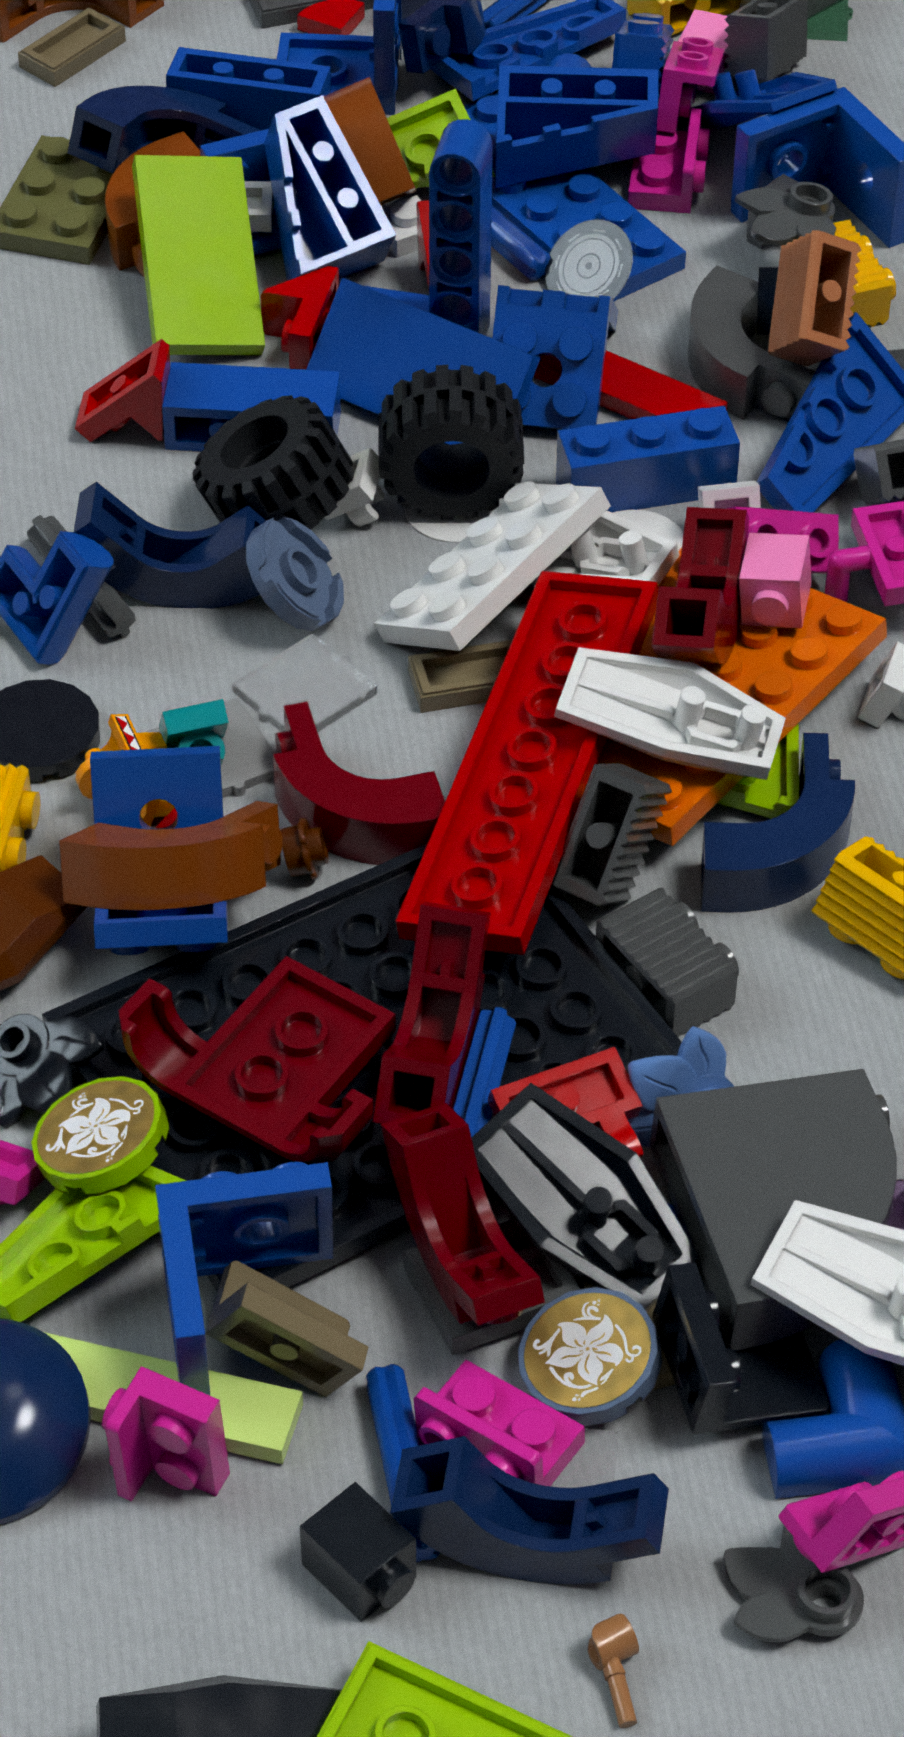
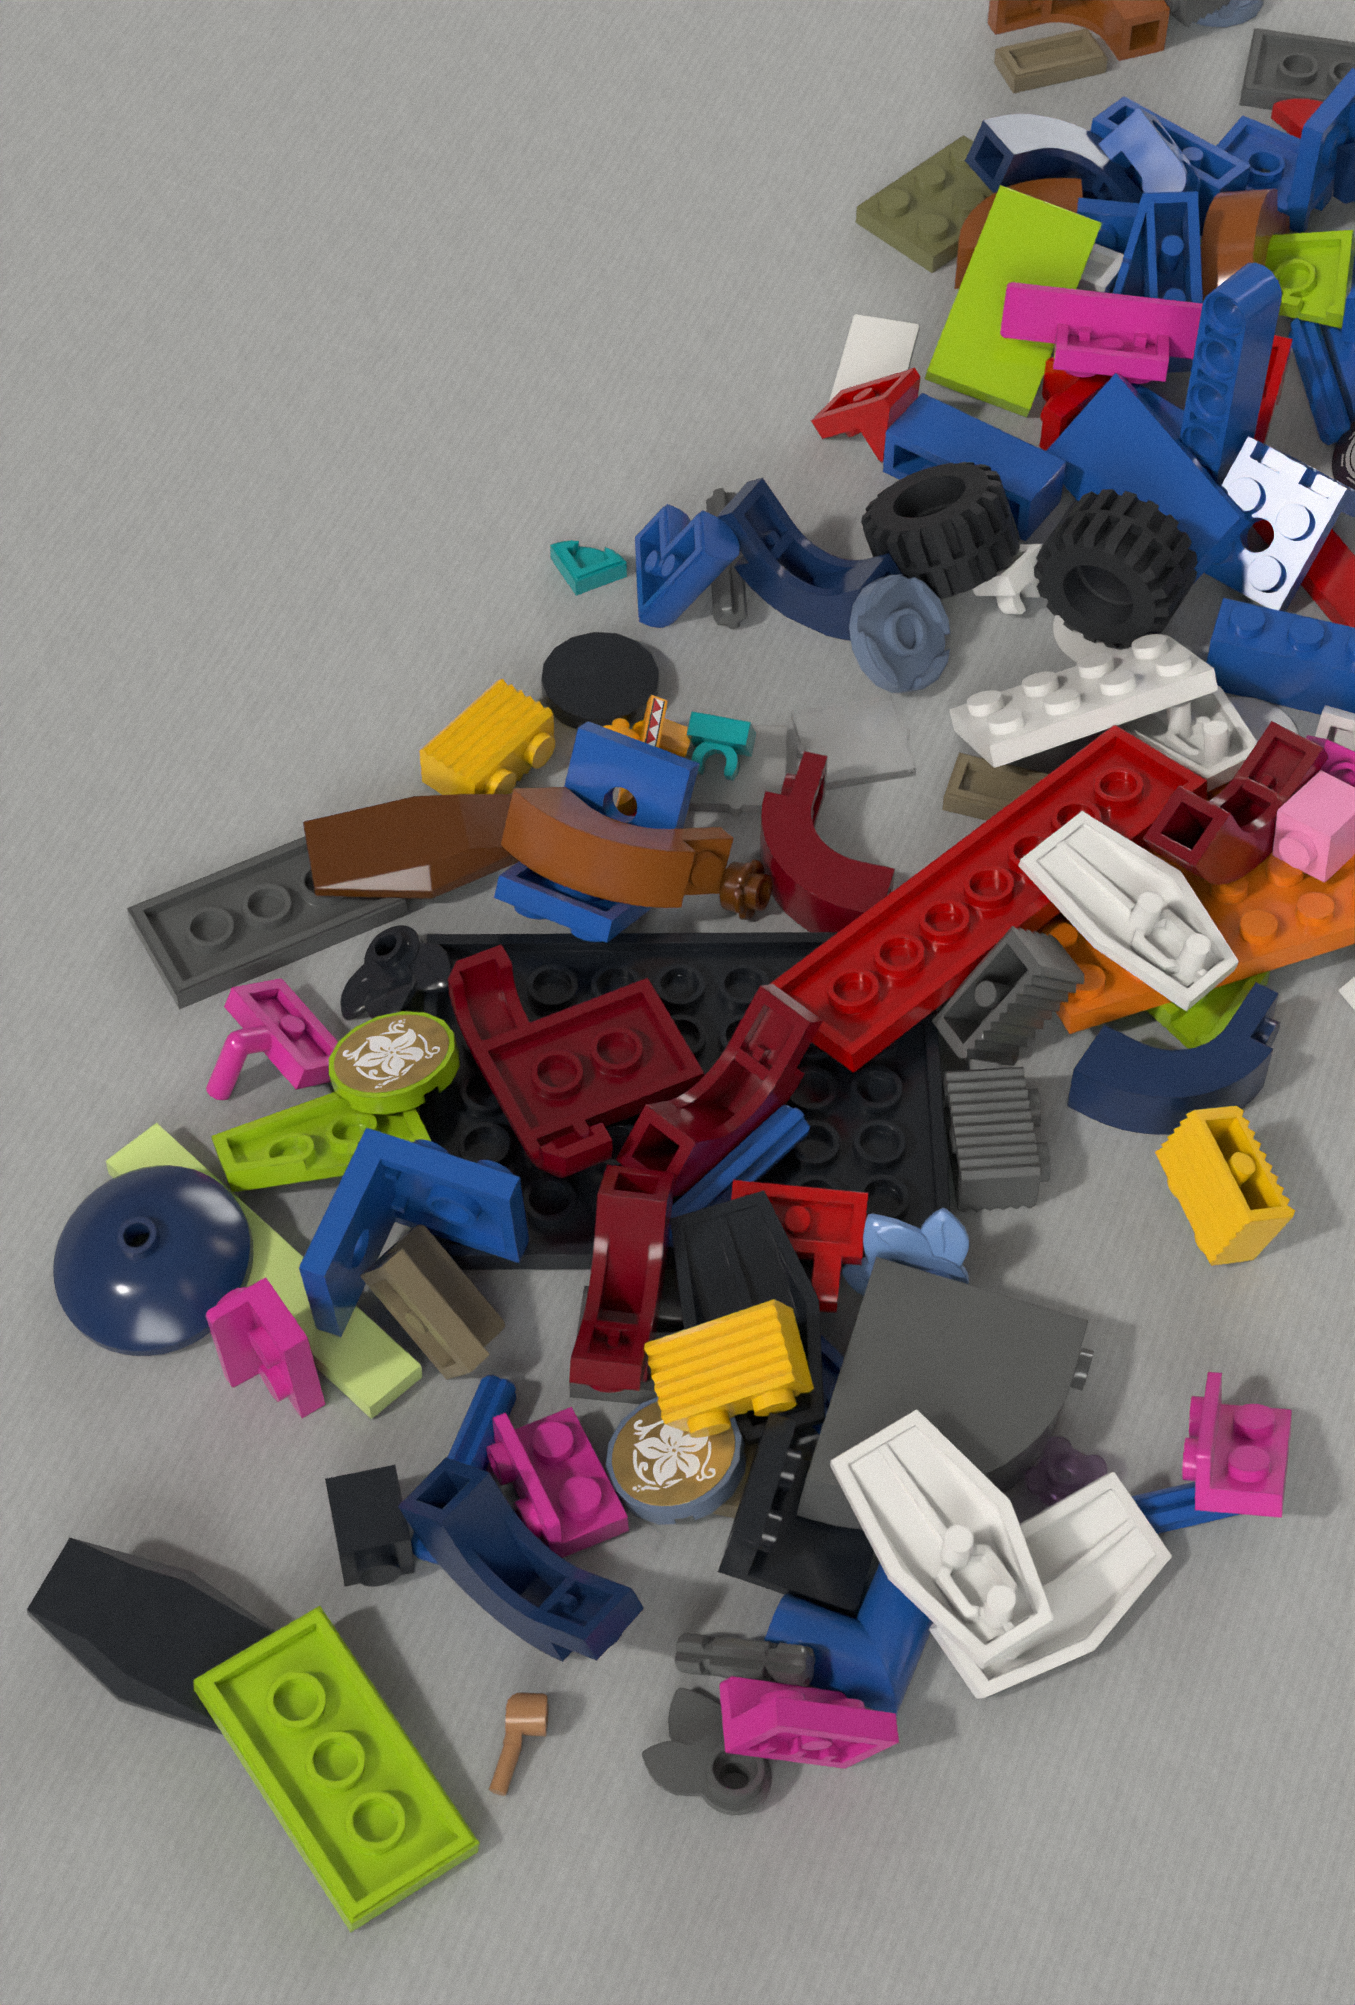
camera: 30 degrees right, 5 degrees up
(86, 352) = (874, 351): none -> white sticker
(245, 83) = (1152, 152): none -> leg
(313, 243) = (1102, 329): none -> dark pink bracket
(610, 1245) = (729, 1368): none -> yellow brick
(770, 1493) = (745, 1659): none -> dark grey axle

